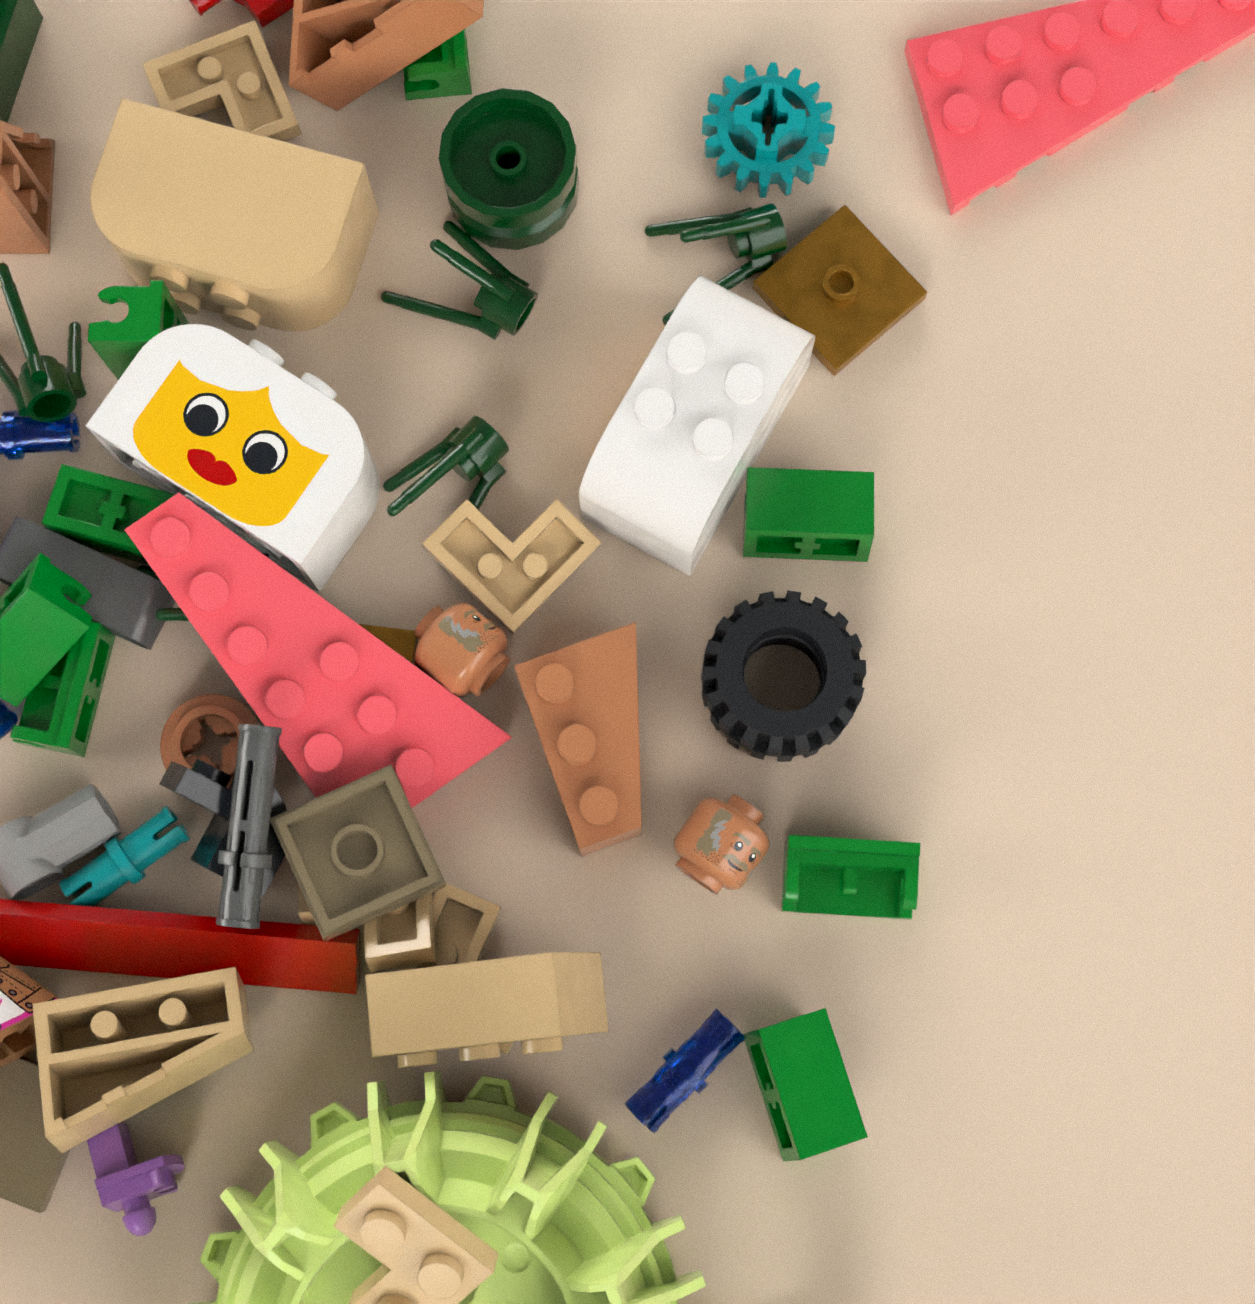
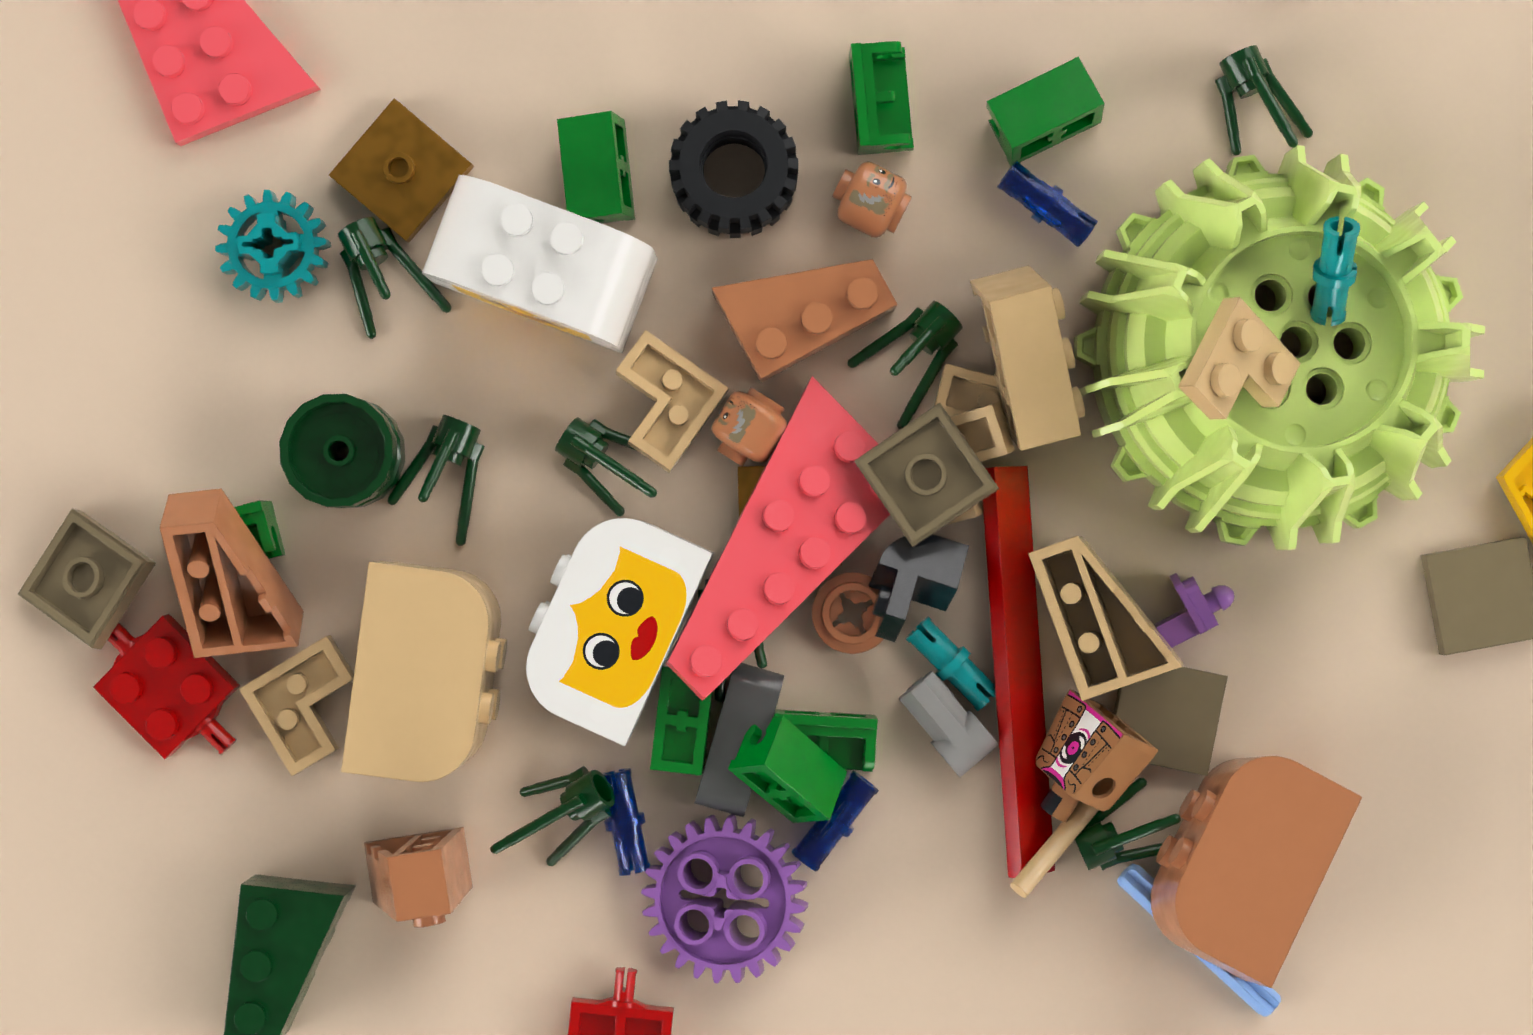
camera: 100 degrees left, 10 degrees up
(149, 313) = (529, 721): green hinge -> none
(248, 827) = (982, 557): dark grey pin -> none
(544, 897) = (932, 331): none -> dark green plant

